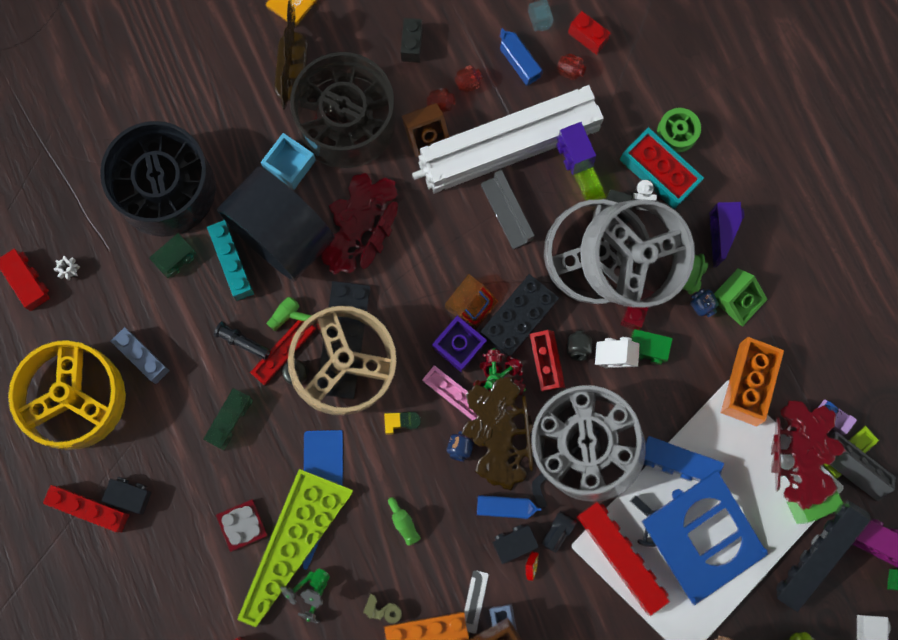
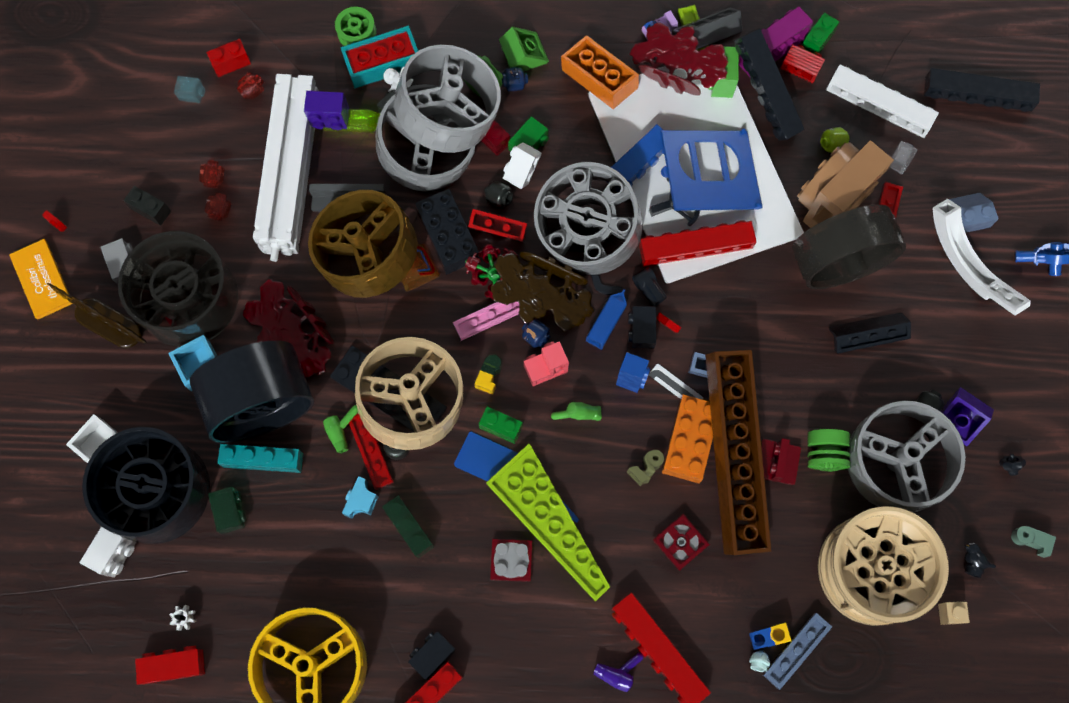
camera: 60 degrees left, 5 degrees down
(85, 177) = (108, 553): none -> white piece
(140, 355) = (305, 583): sand blue brick -> none
(181, 112) = (90, 437): none -> white piece
(234, 364) = (359, 499): none -> medium azure brick
(235, 337) = (335, 486): black pin -> none
(319, 582) = (608, 520): plant -> none
(351, 40) = (114, 255): none -> light grey brick
(358, 456) = (500, 425): none -> green brick
(425, 127) = (235, 228): reddish brown brick -> none
(433, 470) = (547, 365): none -> coral brick
(454, 212) = (328, 238): none -> pearl gold wheel
(459, 344) = (445, 291): dark purple brick -> none
(460, 556) = (633, 373): none -> blue brick
(519, 57) = (216, 124): blue piece -> none
(724, 224) = (459, 31): dark purple slope -> none
(872, 579) = (803, 63): none -> red brick

